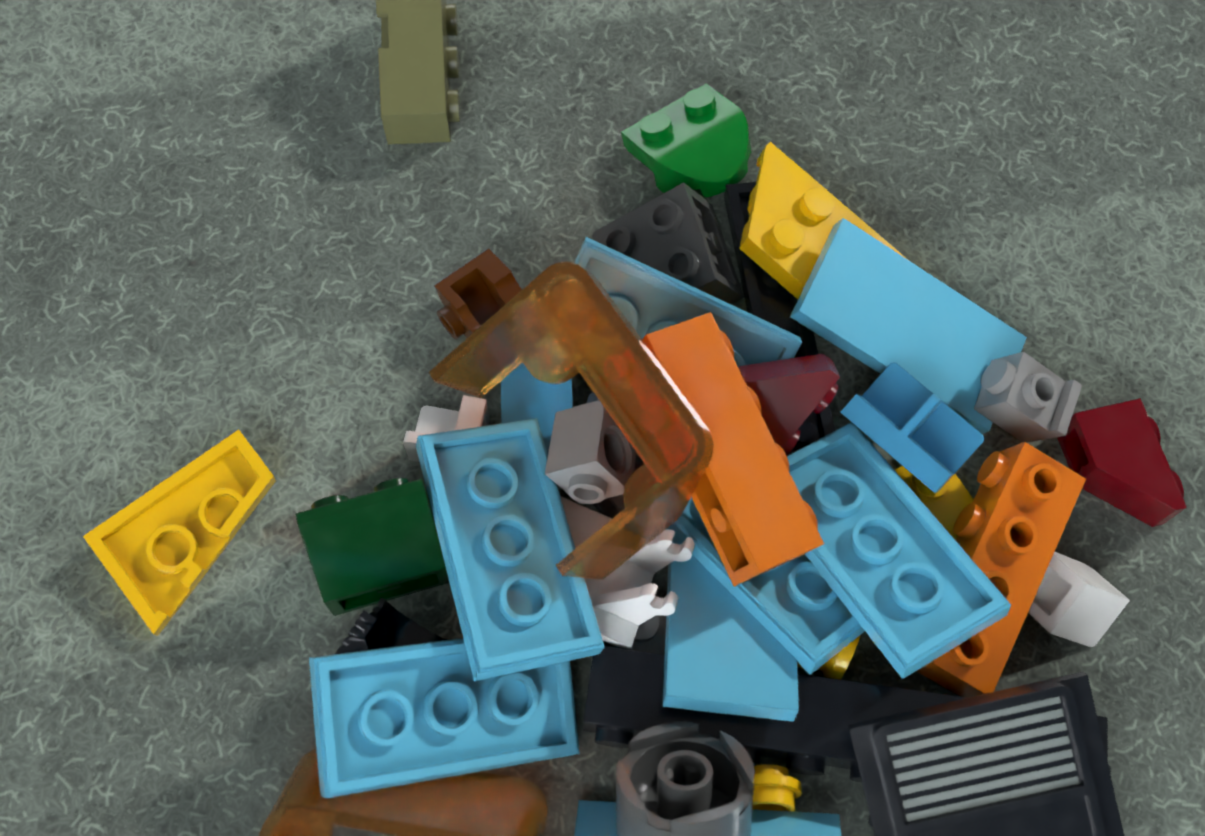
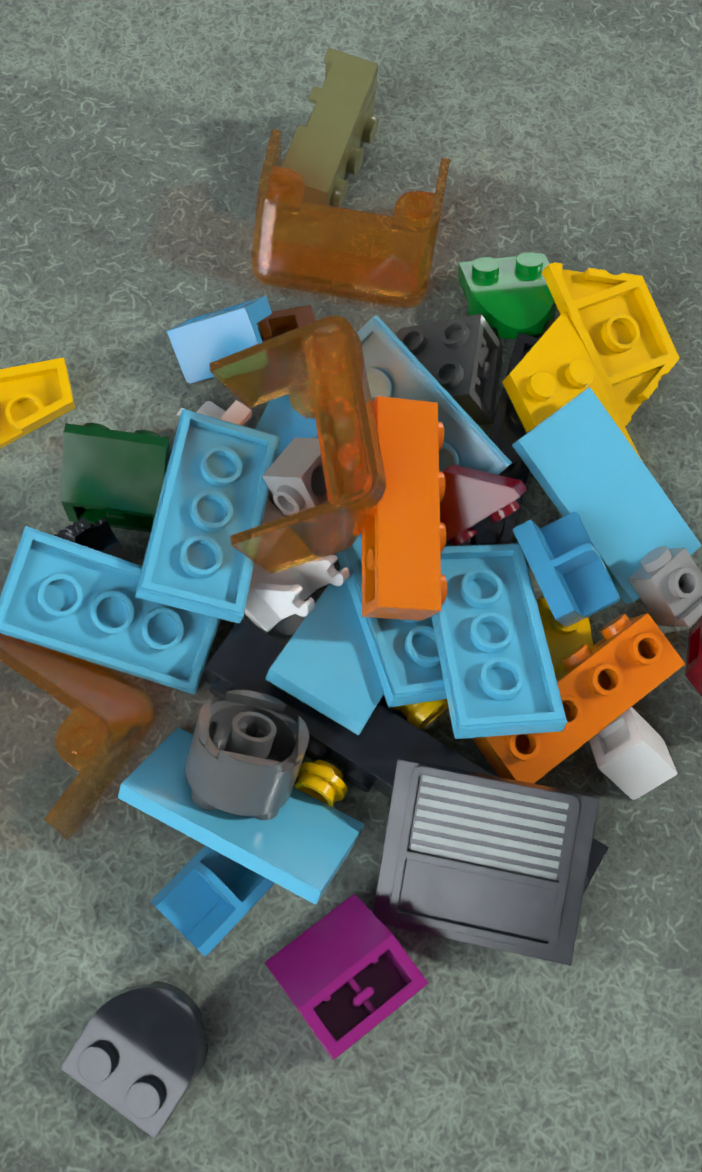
camera: 20 degrees right, 0 degrees up
(408, 331) = (216, 336): none -> panel
(491, 170) = (342, 248): none -> clear orange windscreen
(829, 137) = (617, 329): none -> yellow wing

